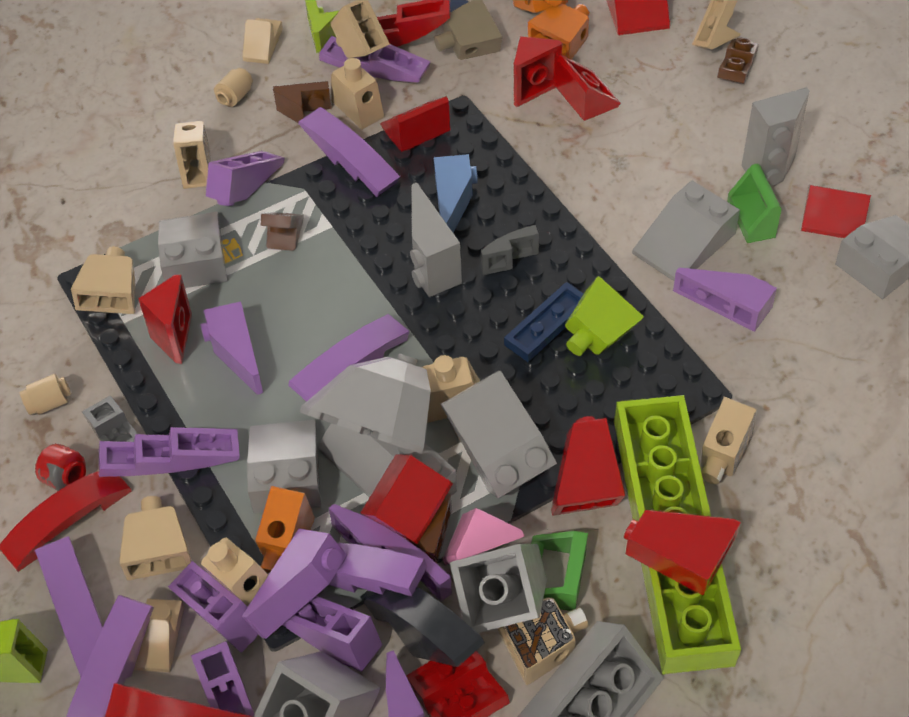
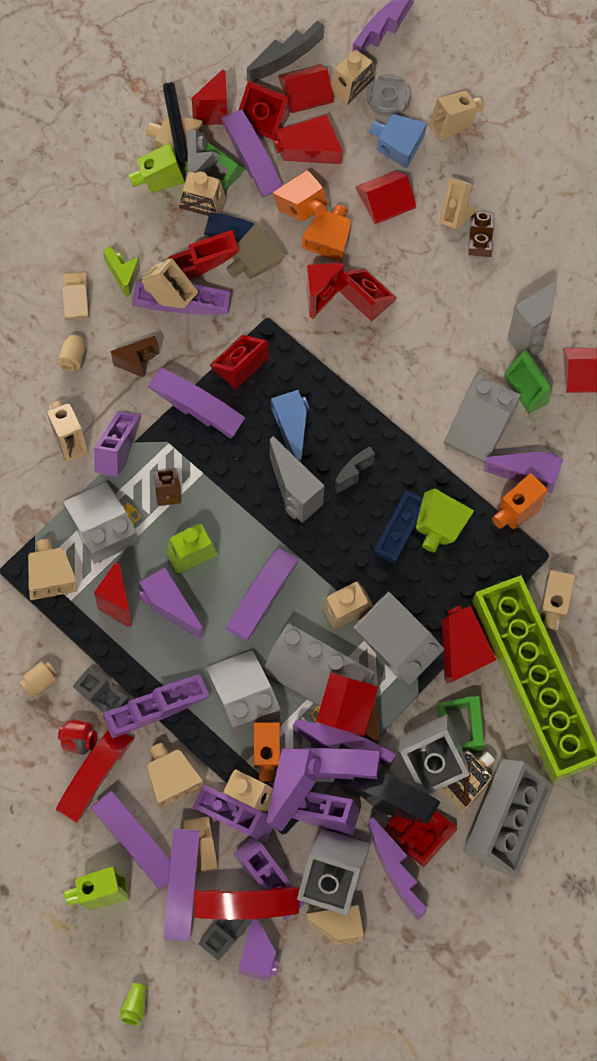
camera: 20 degrees left, 15 degrees up
(282, 289) = (190, 549): none -> lime torso
(356, 94) = (178, 341): tan torso -> none
(378, 399) = (306, 634): light grey brick -> none
(479, 533) = (404, 721): bright pink slope -> none
(682, 545) = (550, 696): red slope -> none
(708, 323) = (520, 503): none -> orange torso

